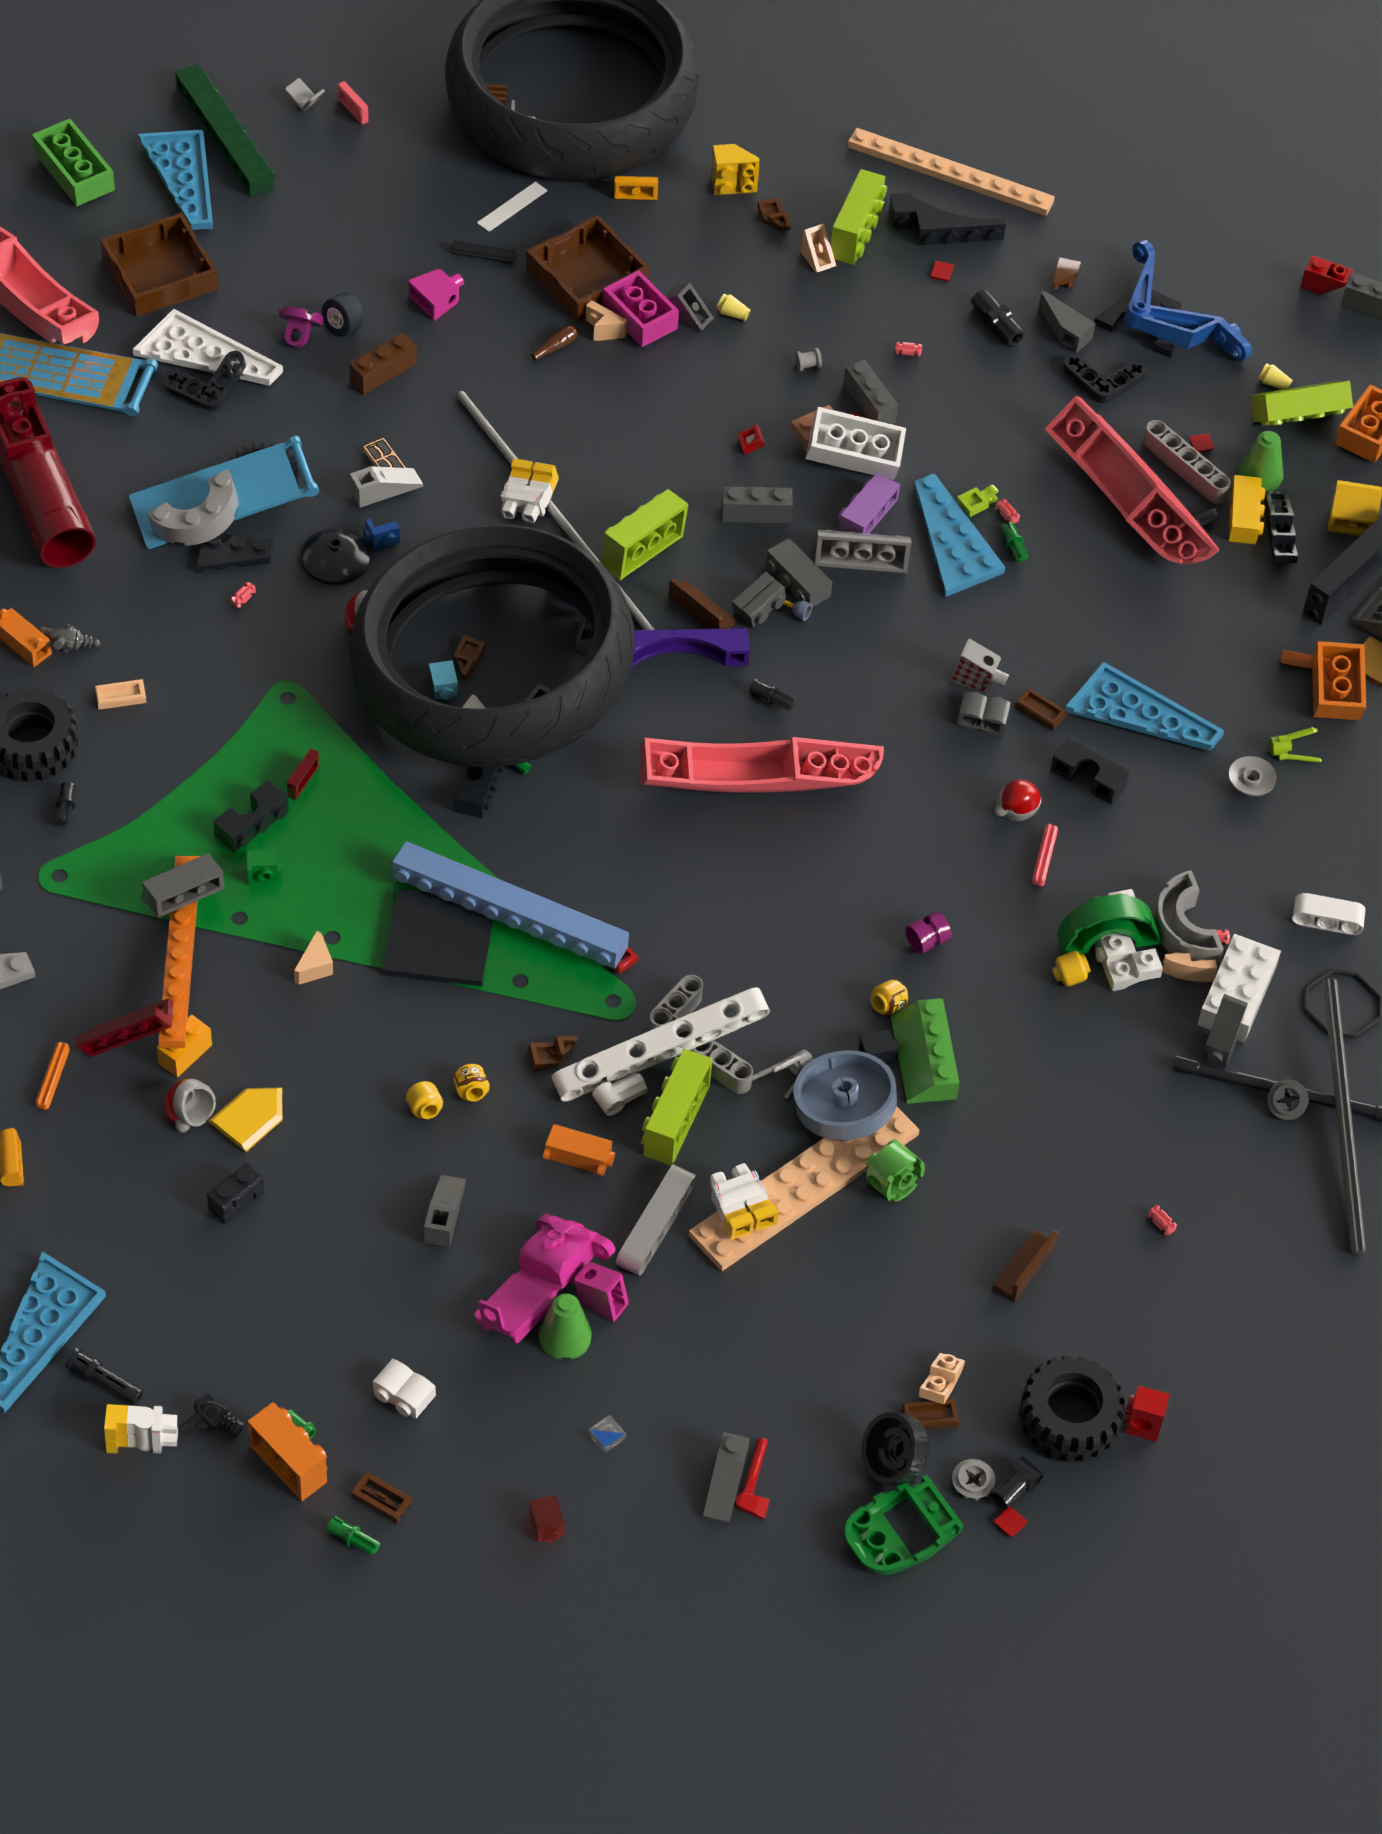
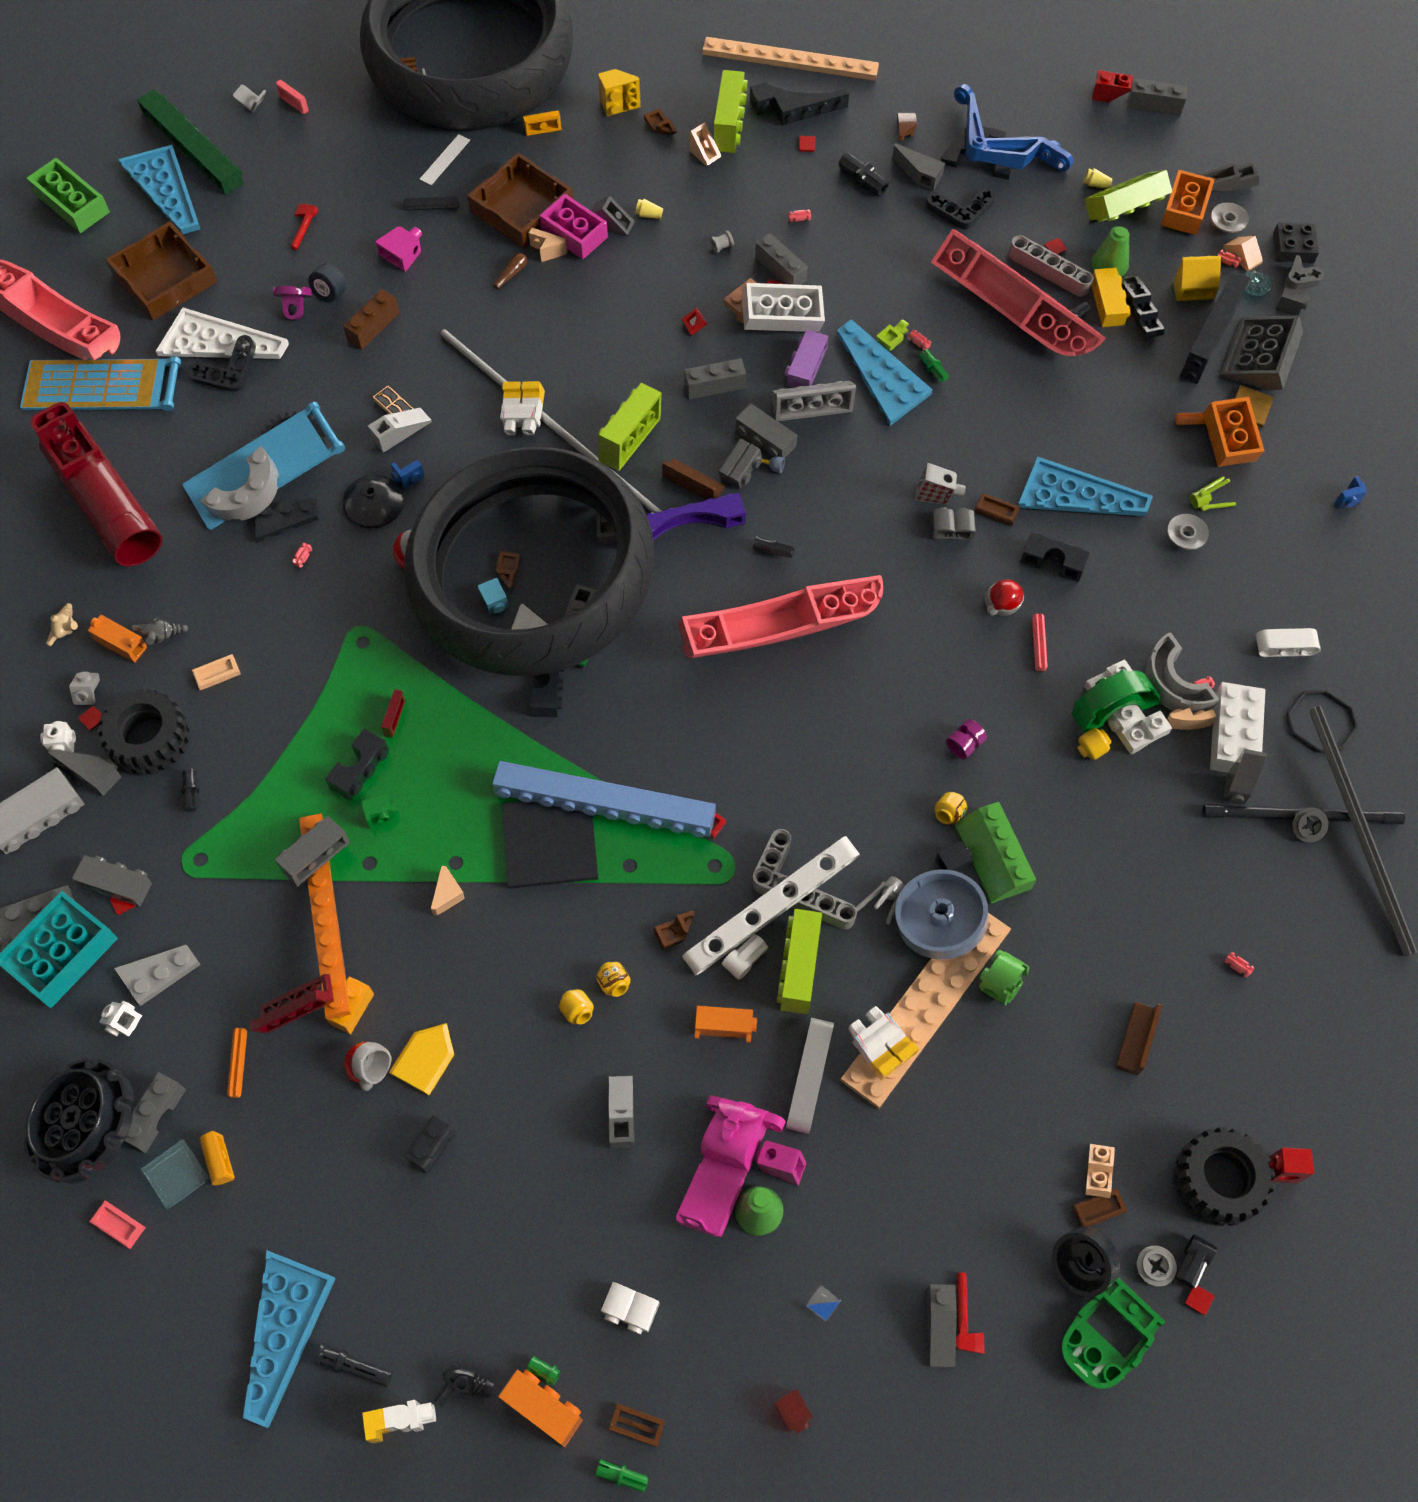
camera: 10 degrees left, 10 degrees up
(339, 234) = (308, 212): none -> red piece

